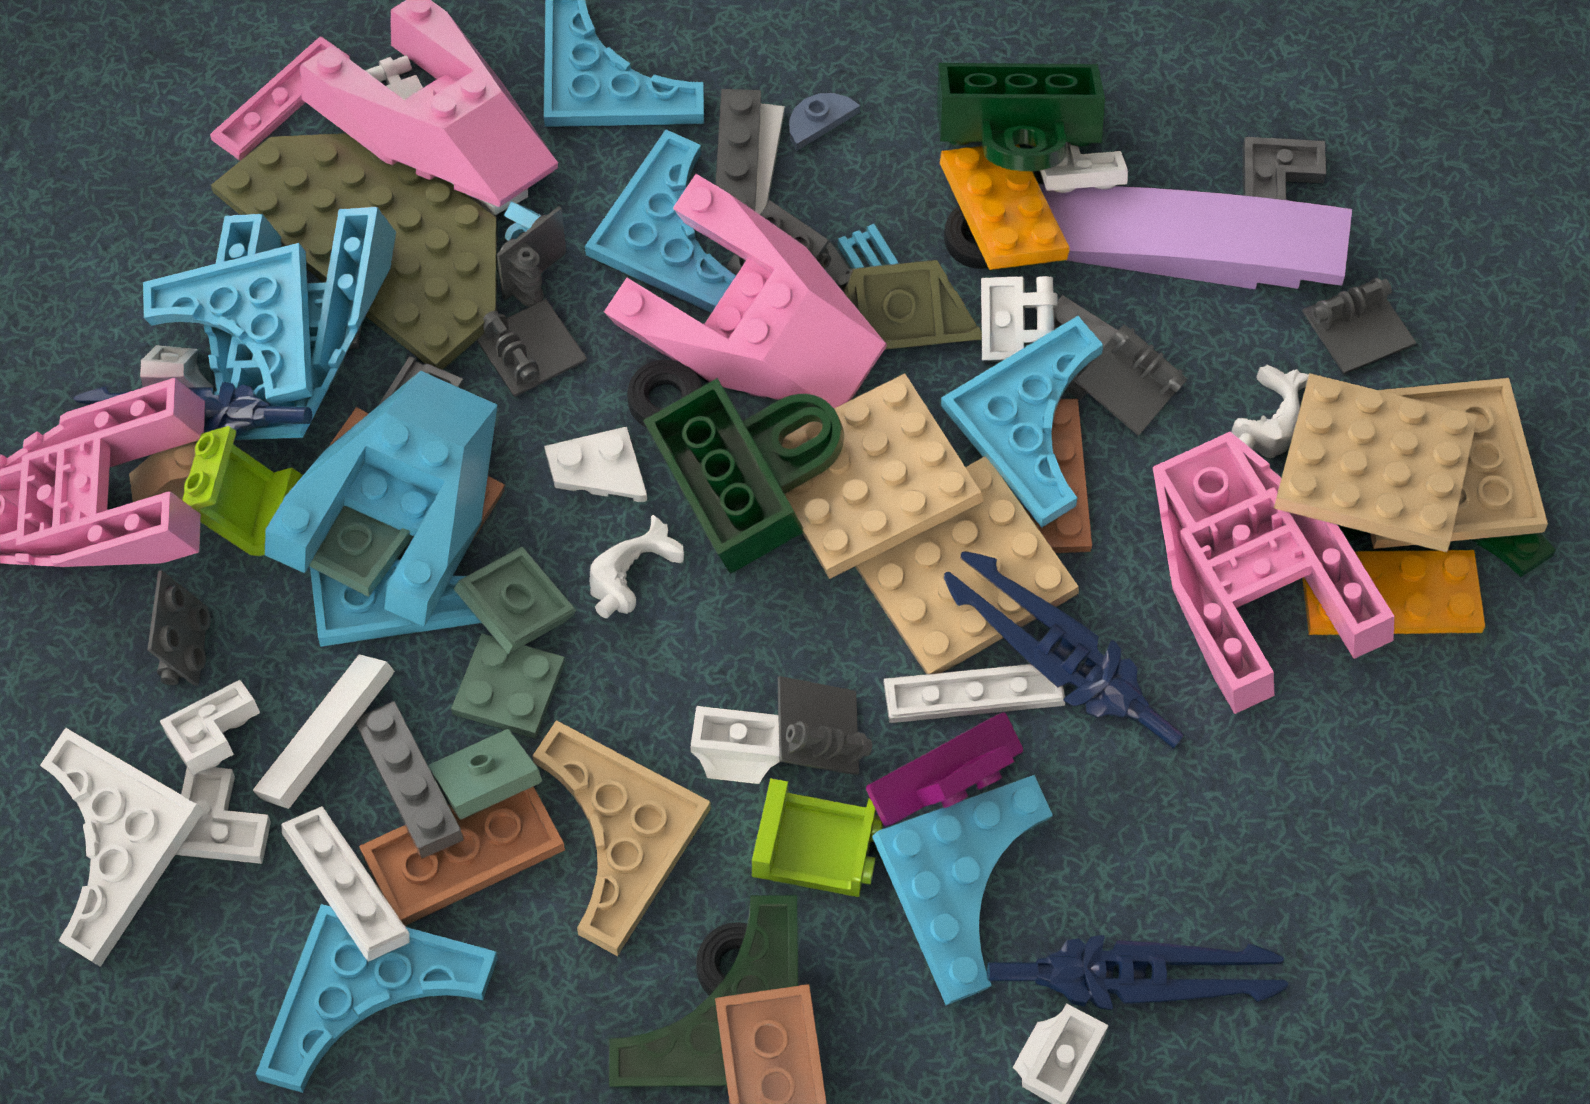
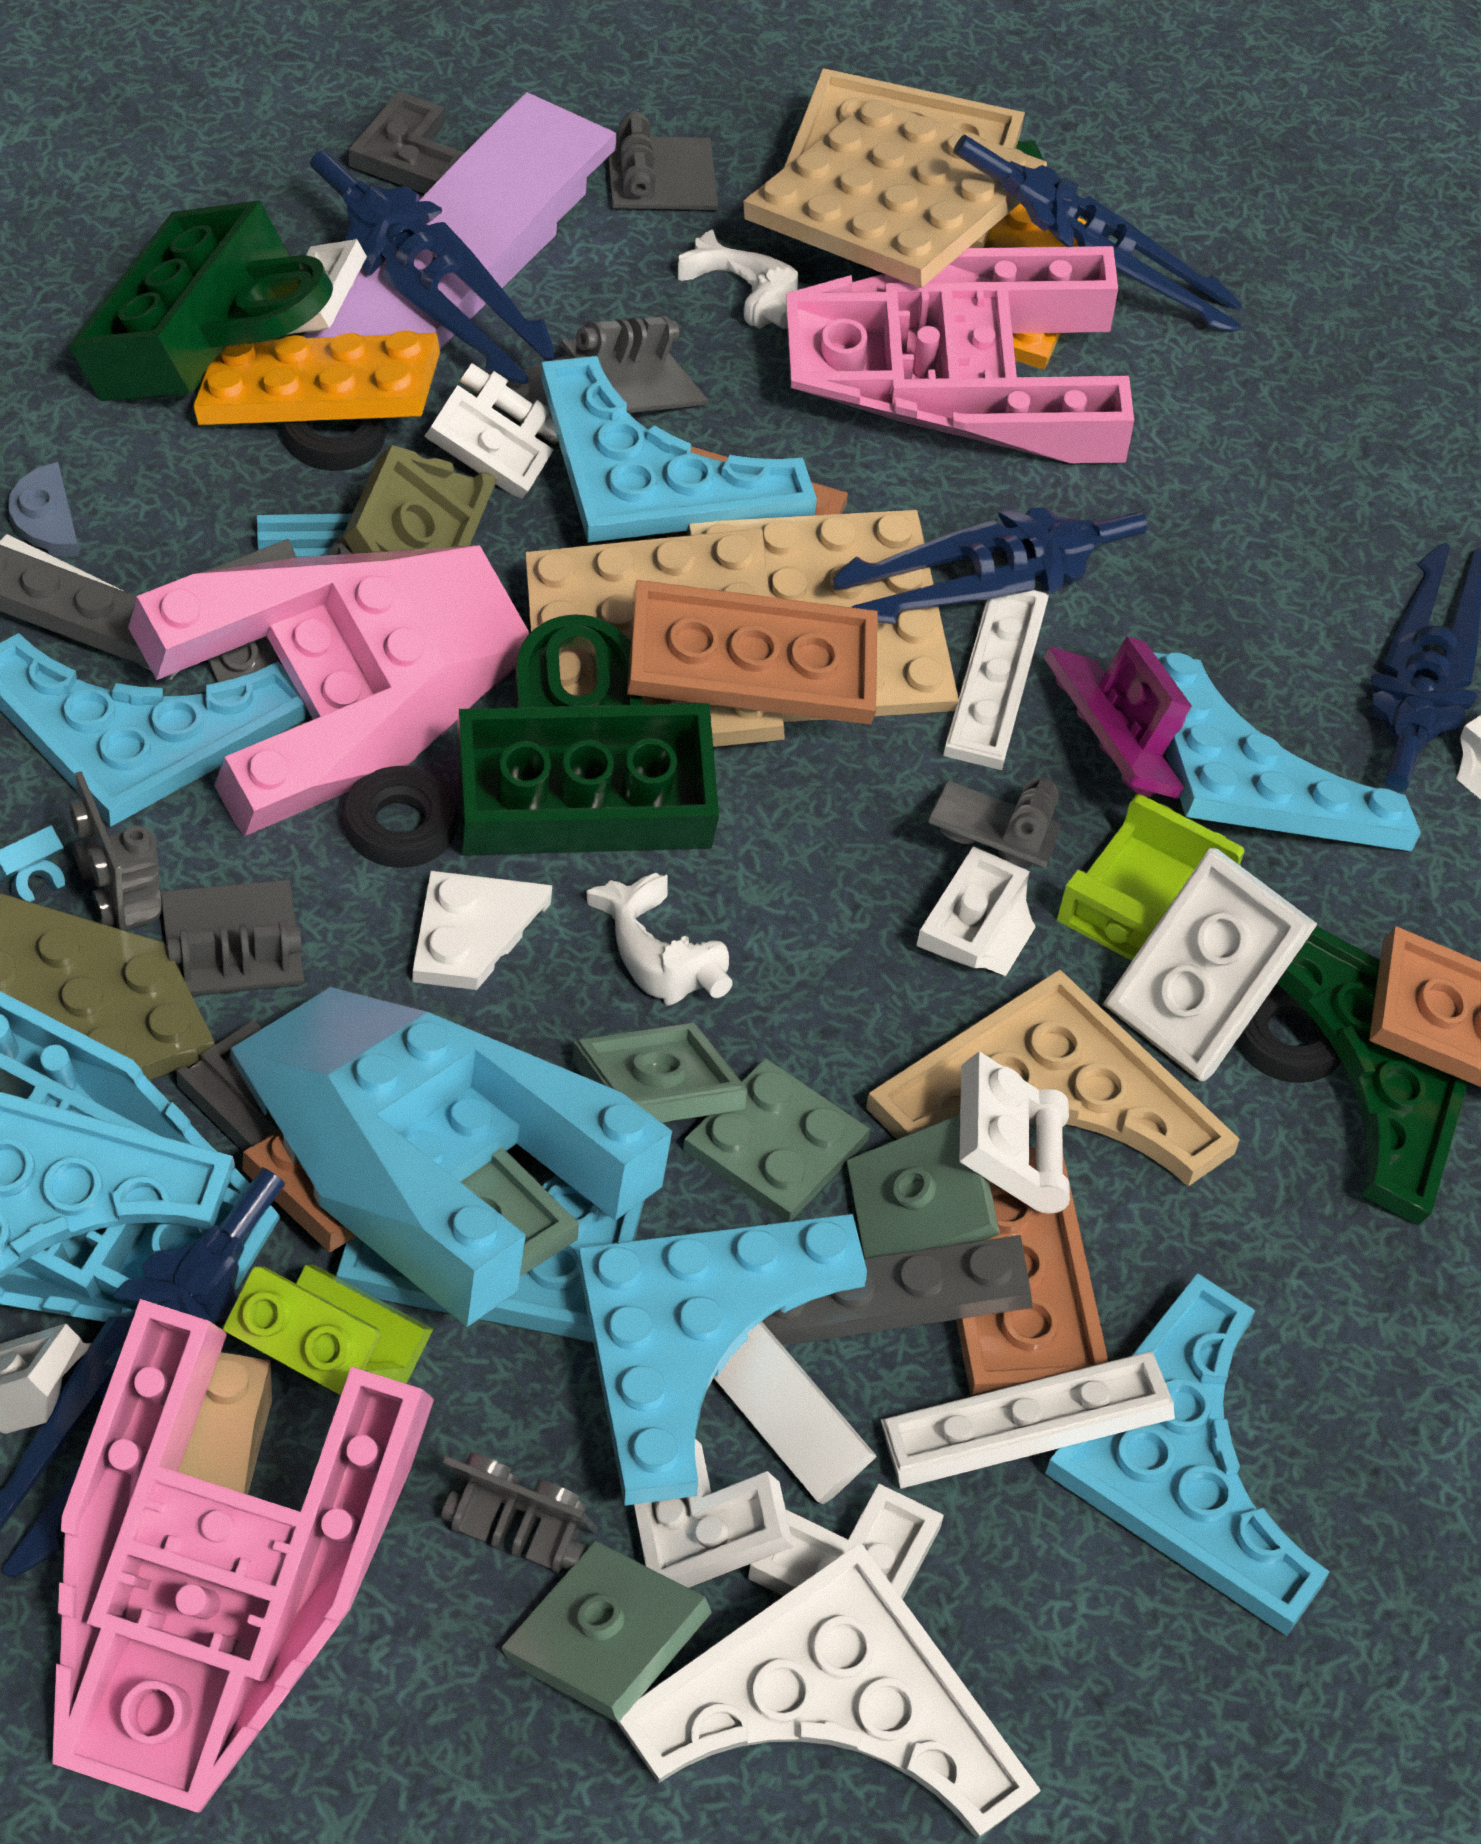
camera: 75 degrees left, 10 degrees down
(118, 706) = (607, 1631): none -> sand green plate
(323, 662) = (676, 1313): none -> medium azure plate
(538, 789) = (996, 1133): none -> white plate
(733, 881) = (1209, 964): none -> white tile
(856, 522) = (753, 652): none -> nougat plate
(1149, 191) = (396, 229): none -> dark blue sword
(1414, 562) = (1056, 208): none -> dark blue sword

